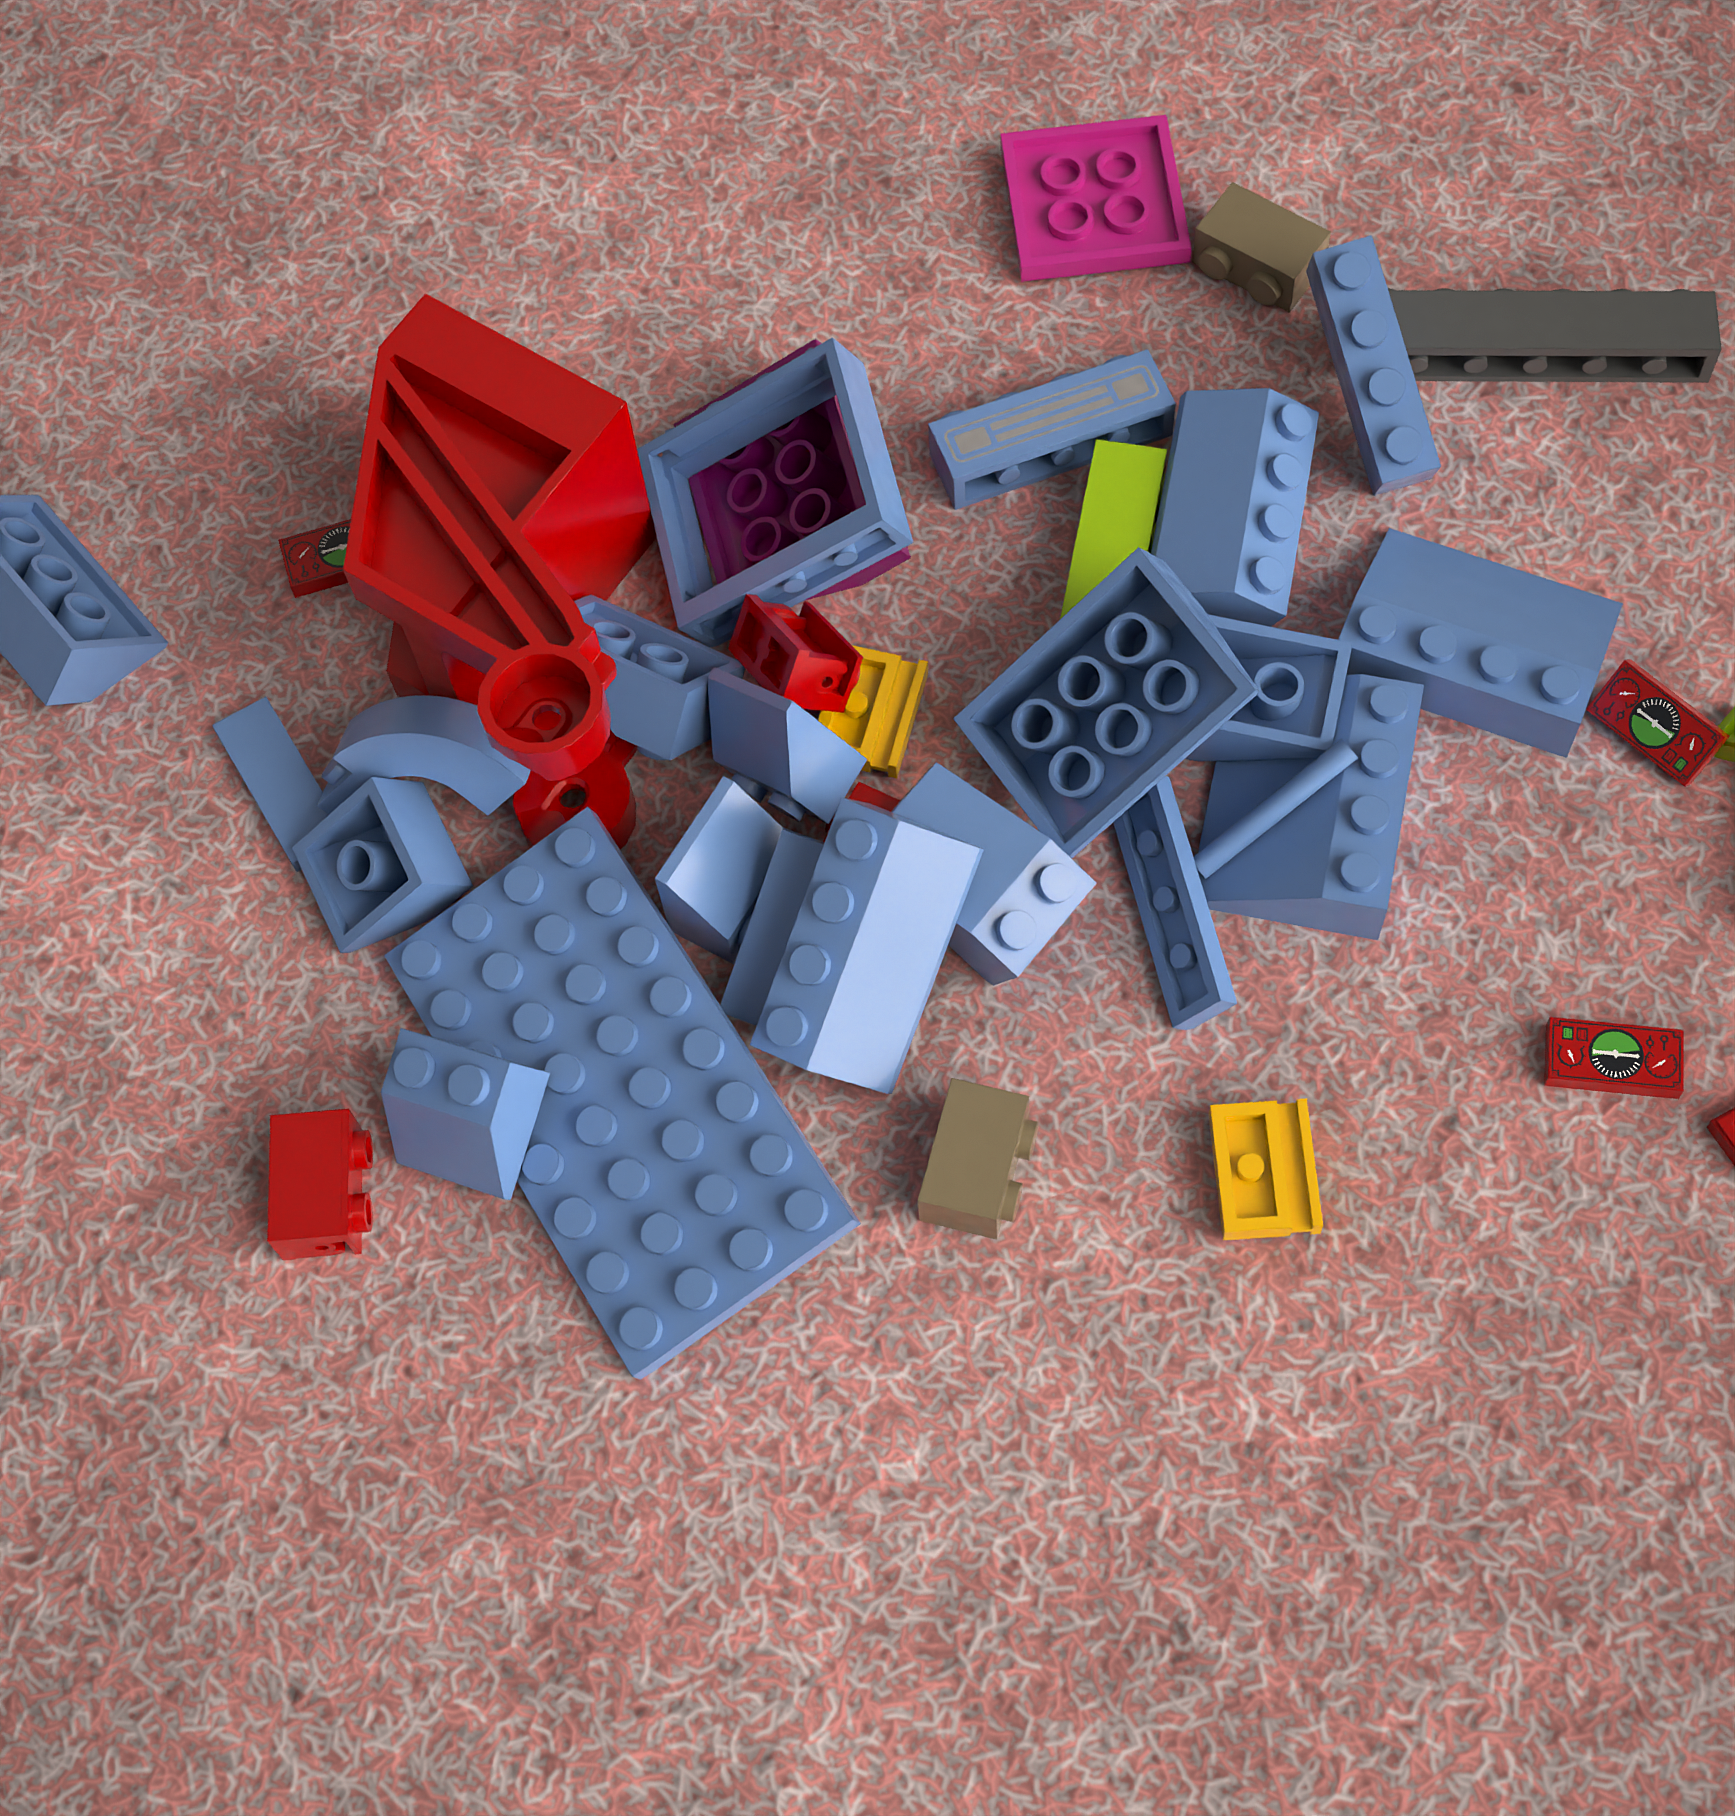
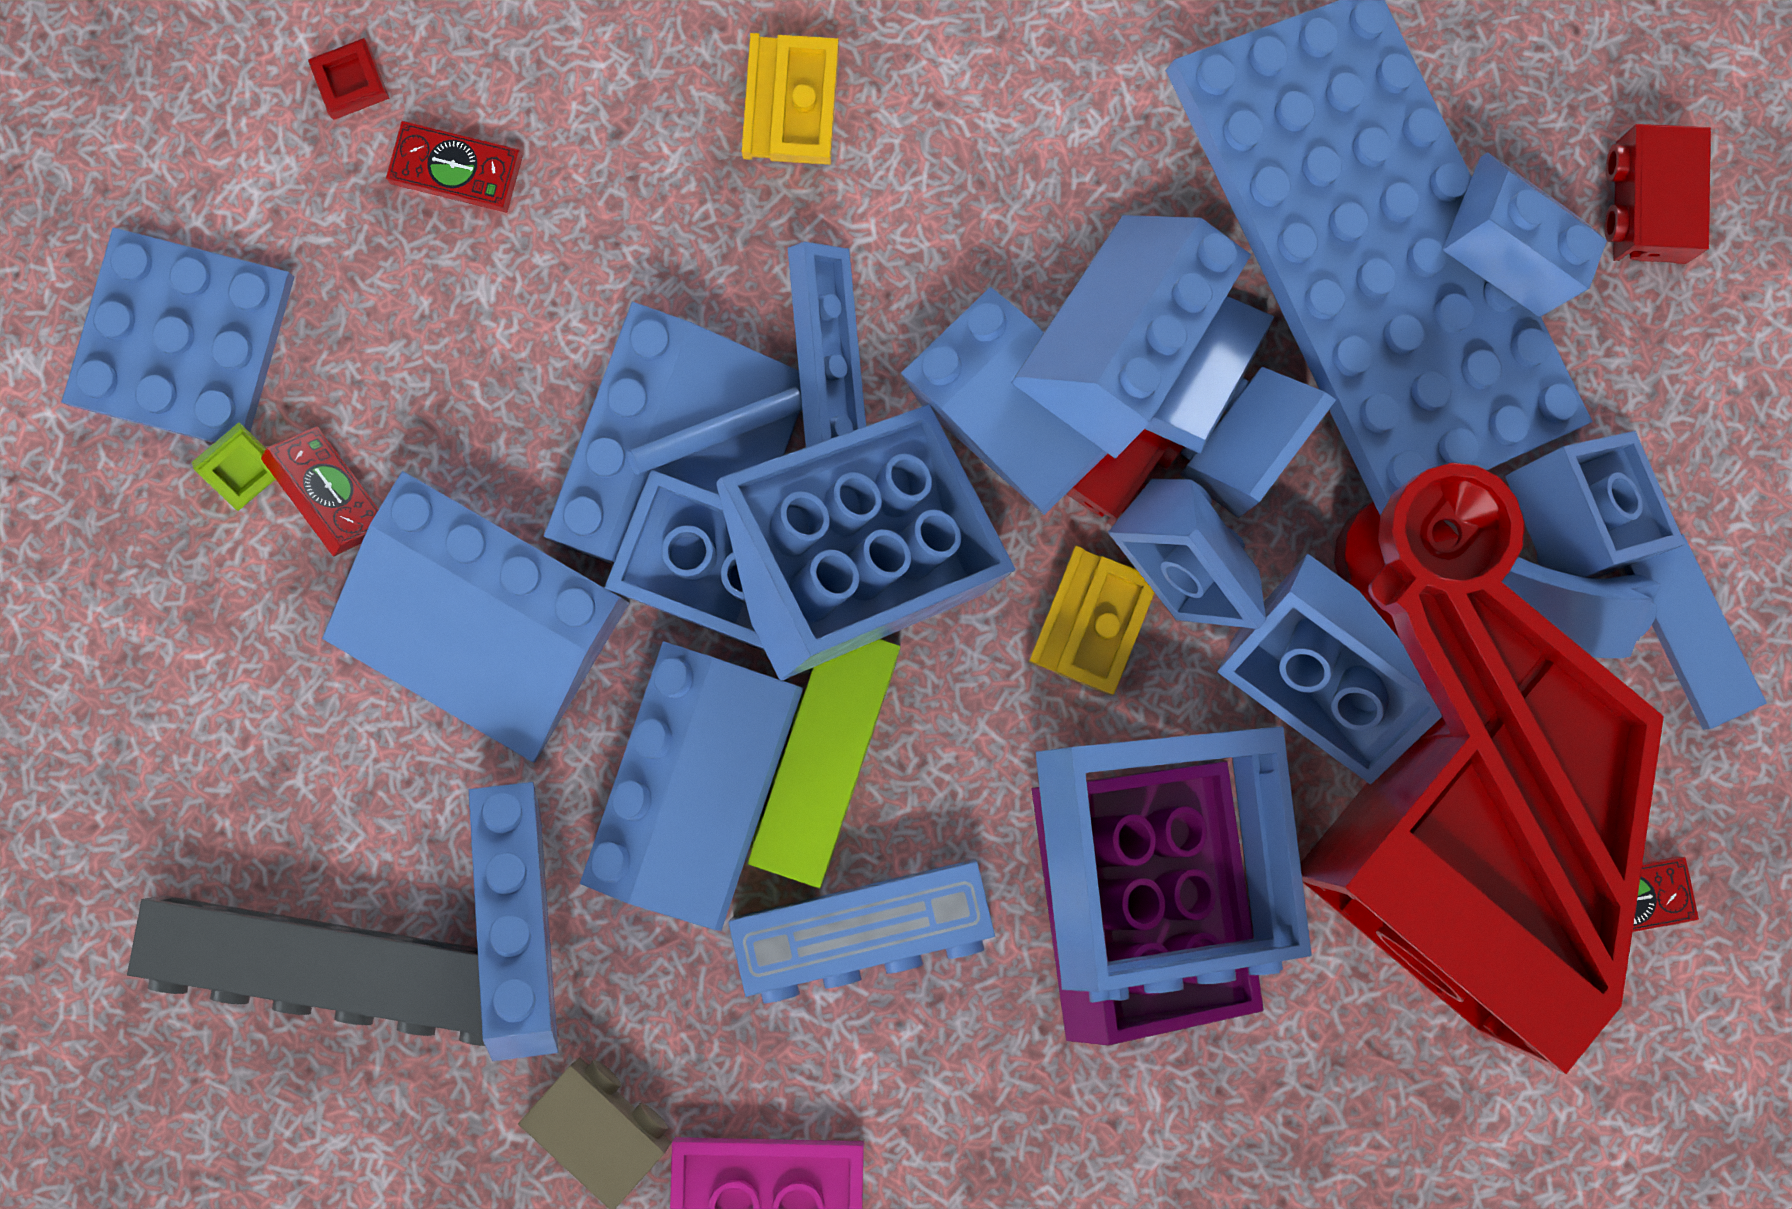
camera: 175 degrees left, 20 degrees up
(795, 654) = (1167, 664): red hinge -> none
(975, 1159) = (1050, 136): dark tan brick -> none

